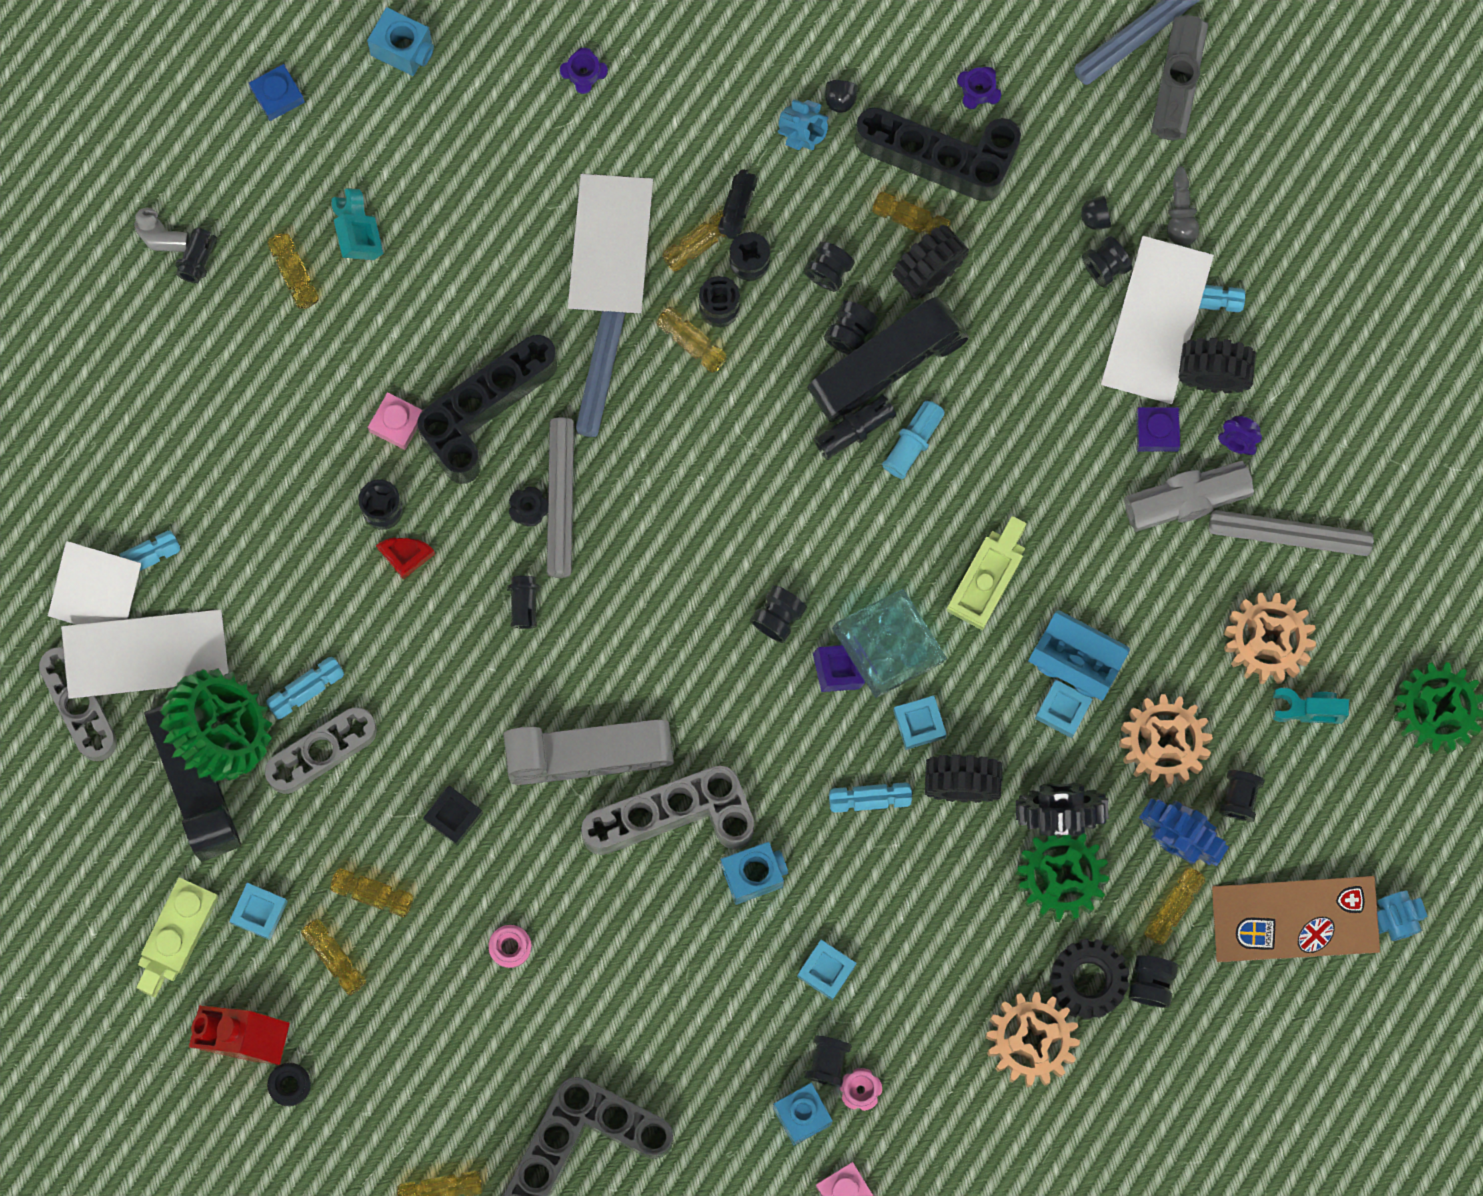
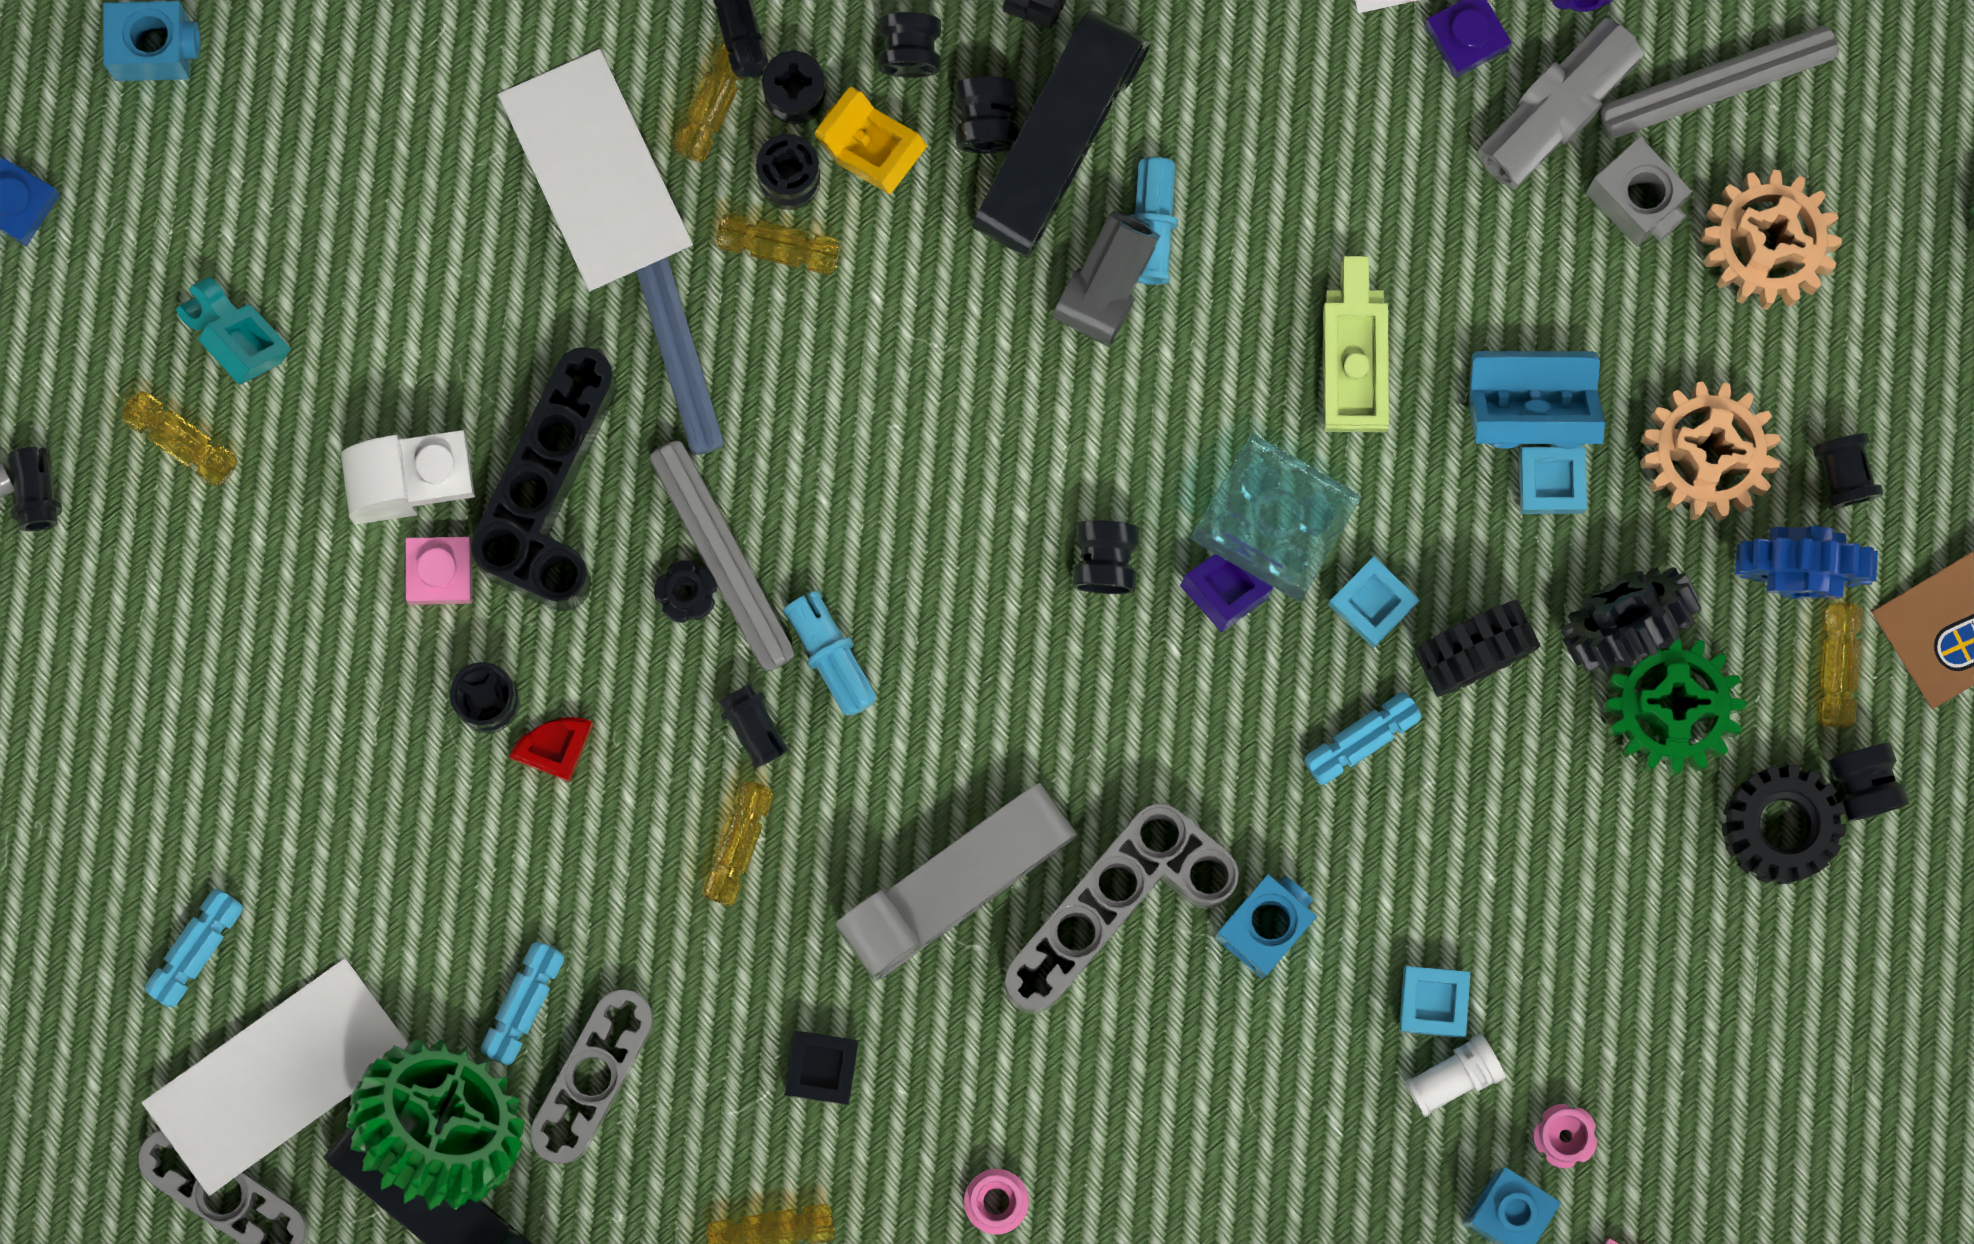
camera: 30 degrees left, 5 degrees up
(93, 586) = (153, 1023): white sticker -> none
(400, 353) = (394, 475): none -> white brick
(477, 663) = (737, 843): none -> clear yellow axle
(590, 584) = (830, 653): none -> medium azure axle
(774, 307) = (869, 141): none -> yellow bracket
(824, 1019) = (1470, 1068): none -> white pin
(828, 1061) = (1504, 1122): black bush -> none
(855, 427) = (1065, 247): black pin -> none
(858, 462) = (1101, 291): none -> dark grey piece
(1014, 1045) = (1778, 964): light nougat gear -> none
(1209, 554) = (1640, 167): none -> light grey brick
(1320, 708) = (1887, 297): teal plate -> none

